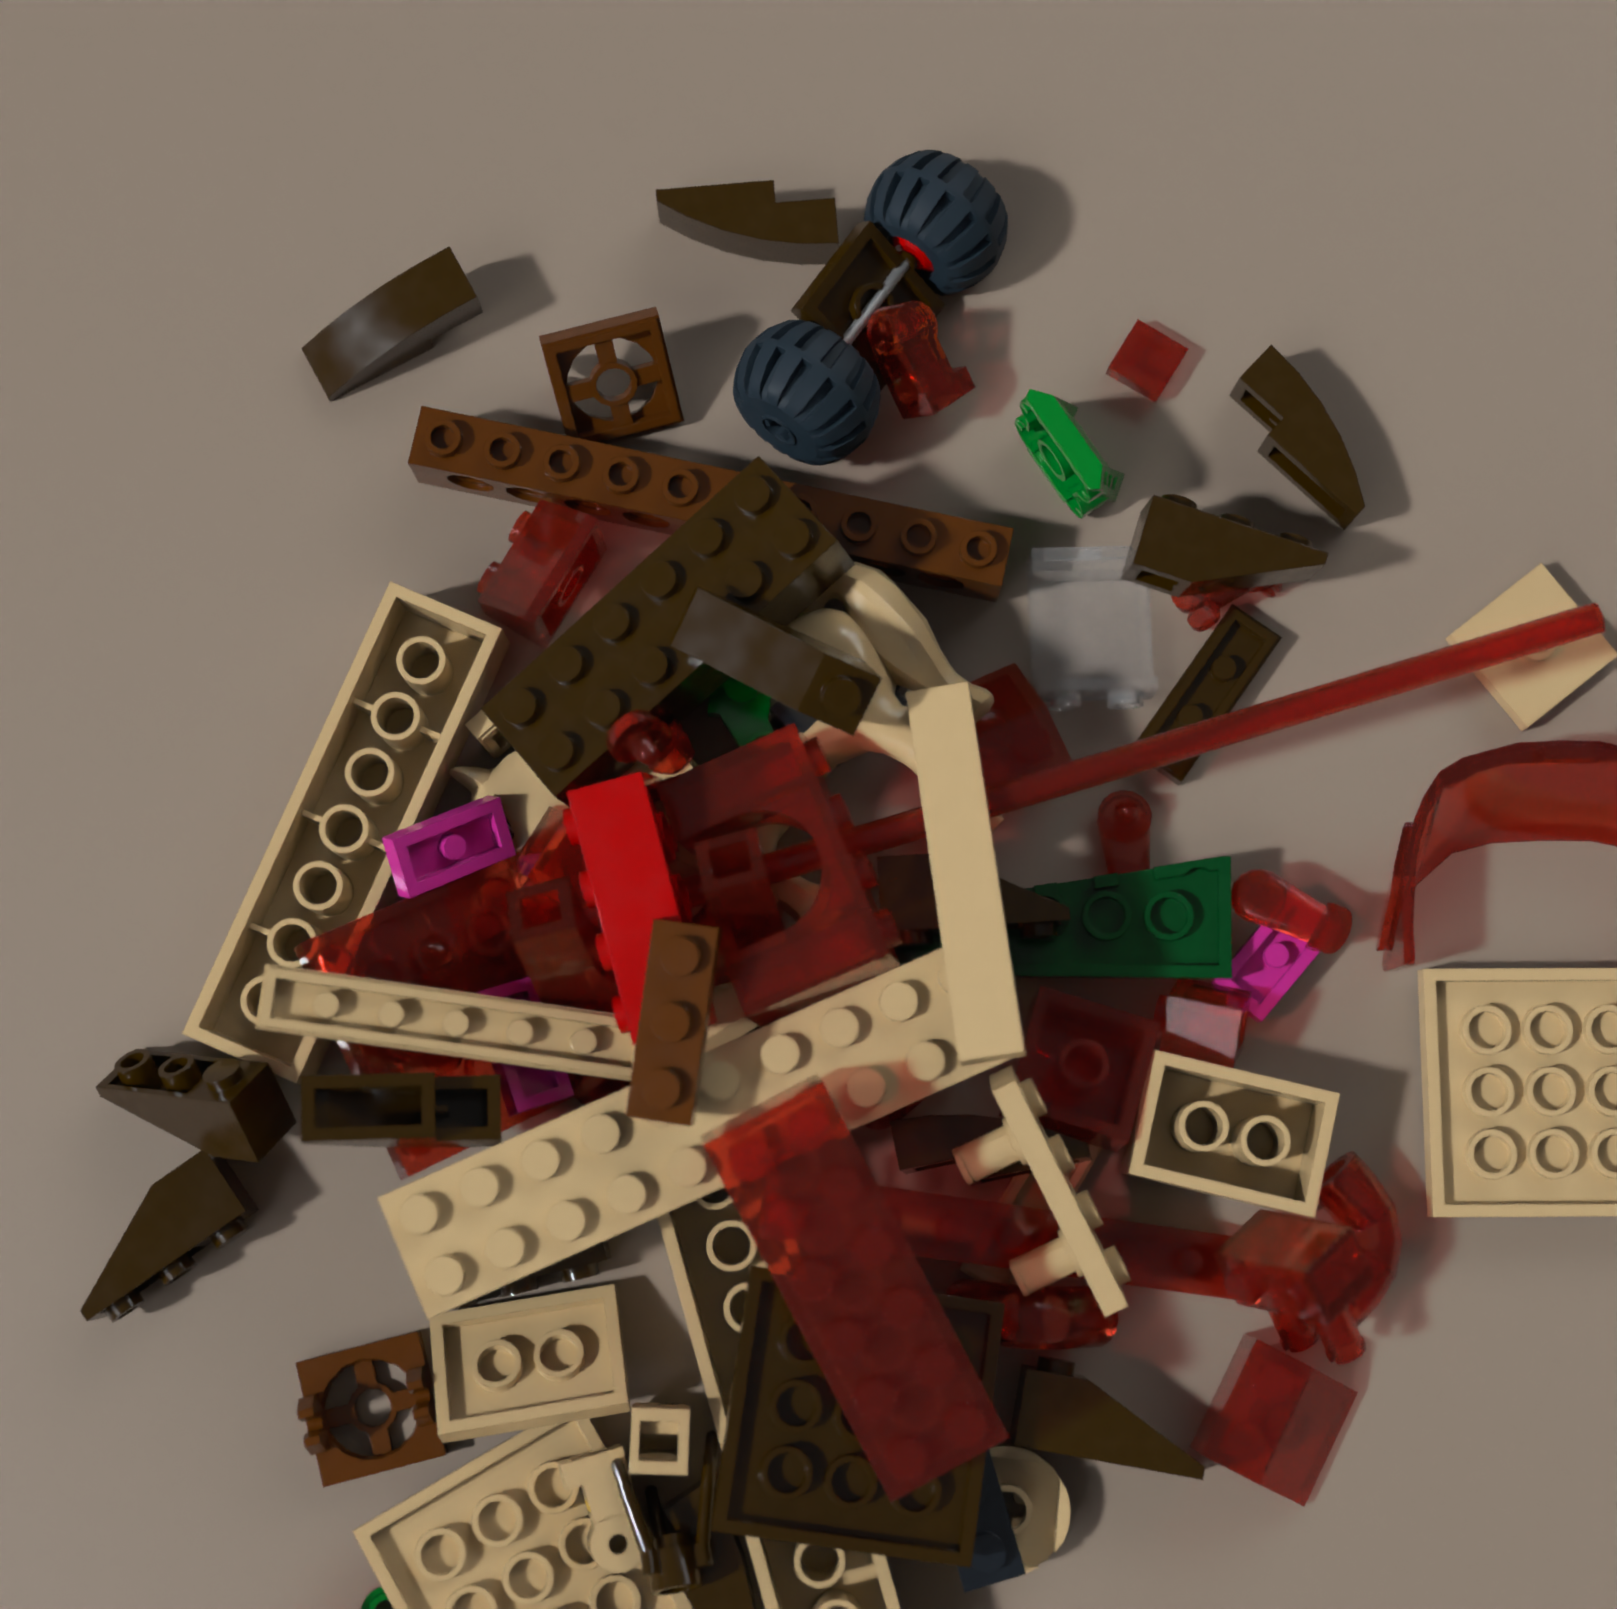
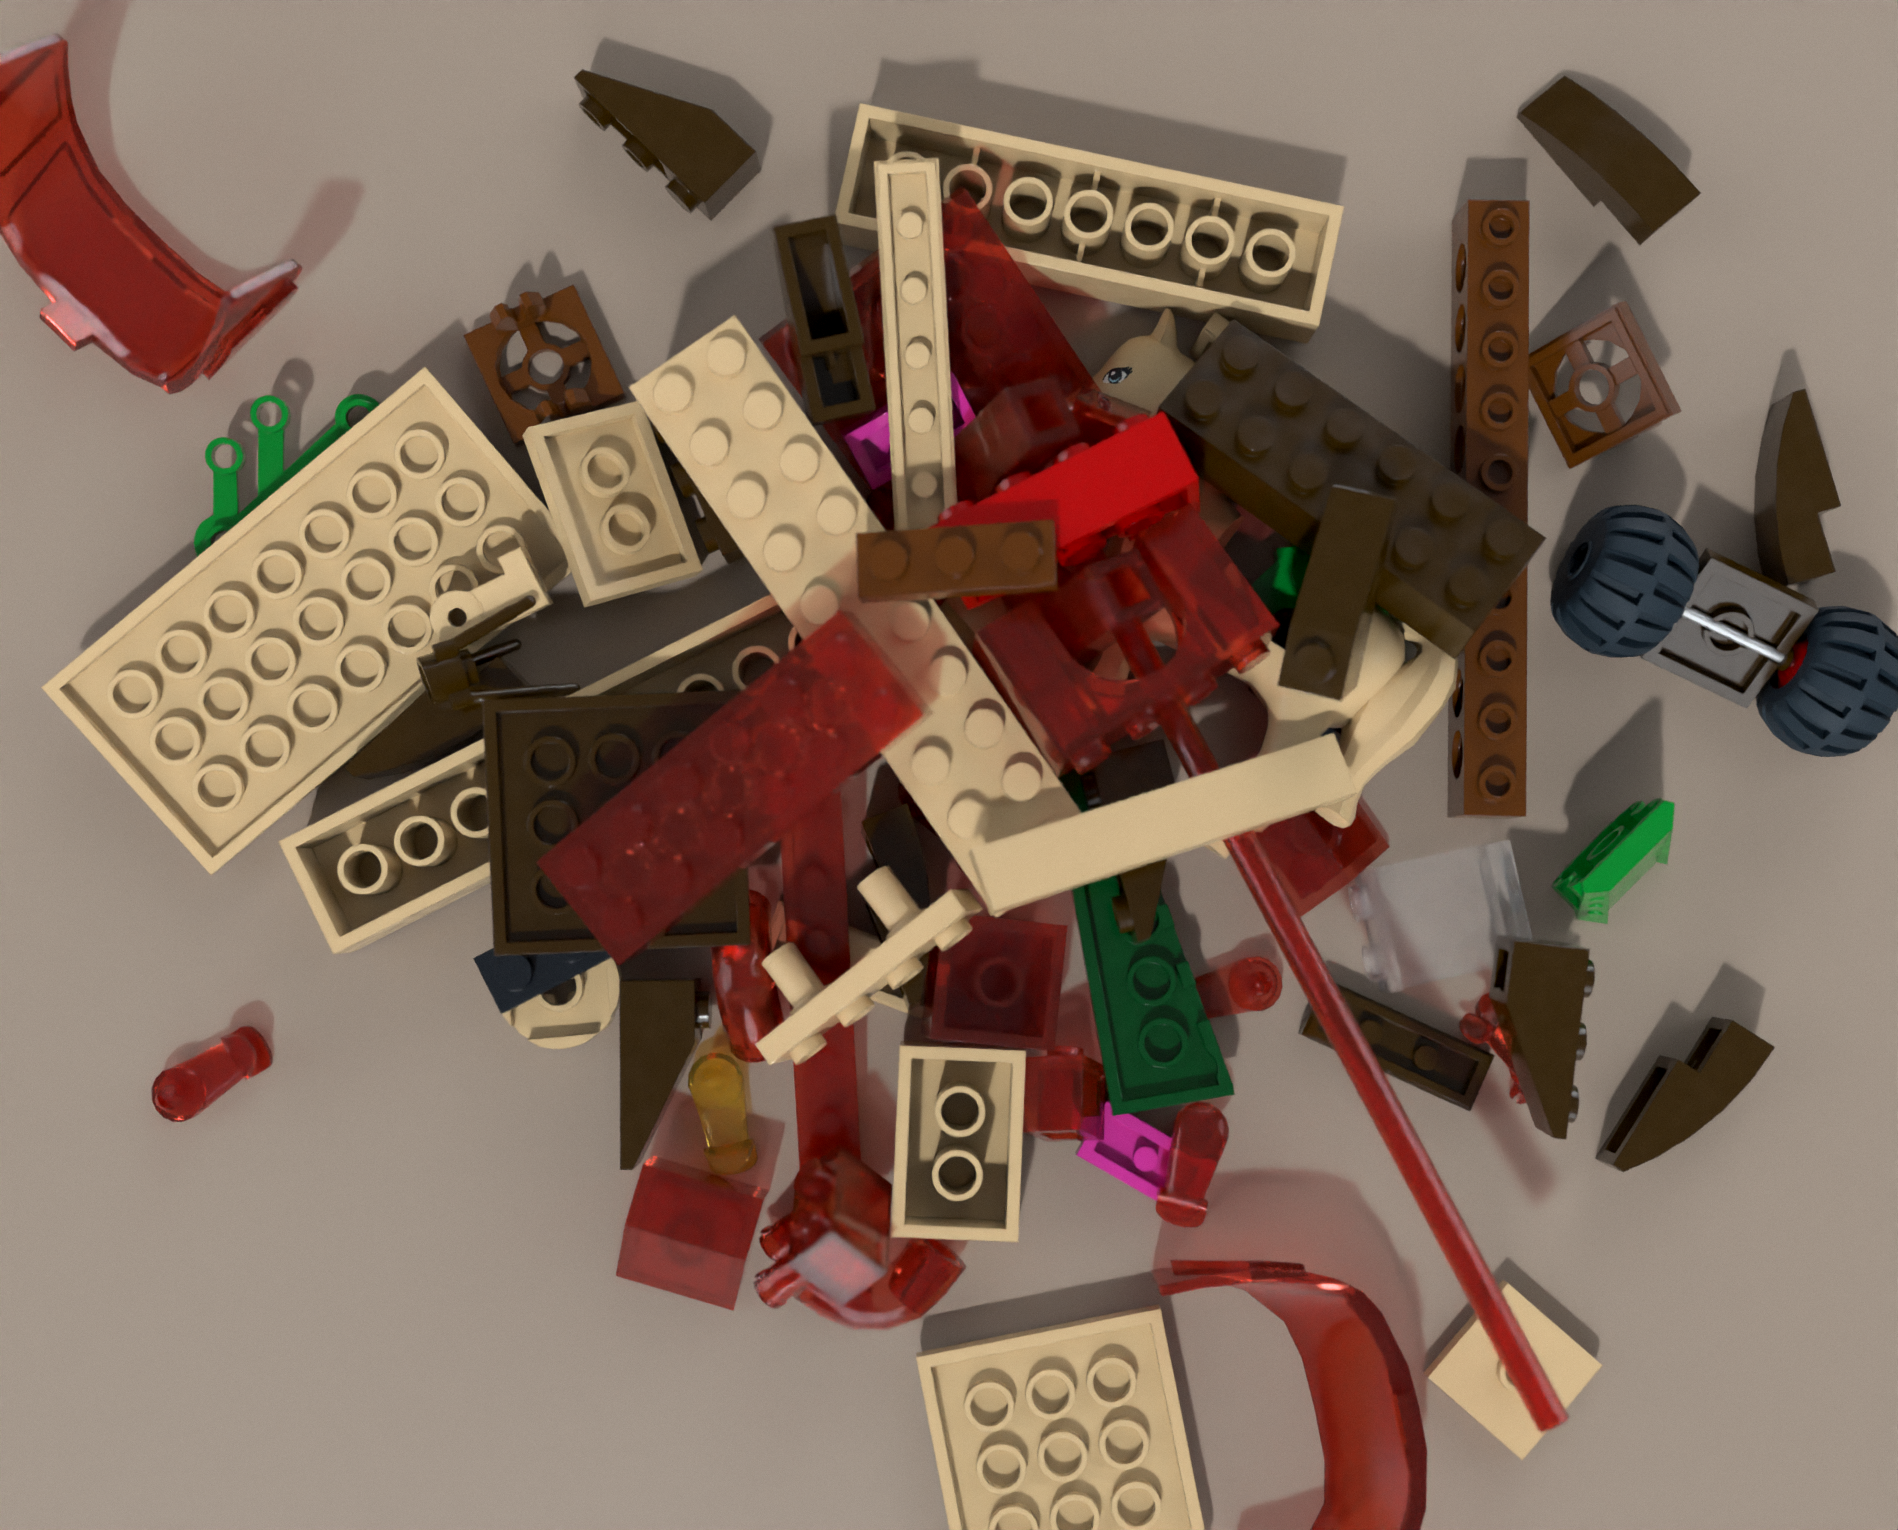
camera: 80 degrees right, 5 degrees up
(207, 1101) = (800, 144): dark brown slope -> none
(448, 846) = (1091, 319): dark pink plate -> none
(542, 571) = (1386, 358): clear red slope -> none
(650, 741) = (1231, 489): clear red piece -> none
(659, 1439) = (562, 636): tan leg -> none
(915, 360) = (1680, 684): clear red leg -> none
(1147, 361) = (1730, 925): clear red tile -> none
(1153, 1366) = (721, 1105): none -> clear yellow piece

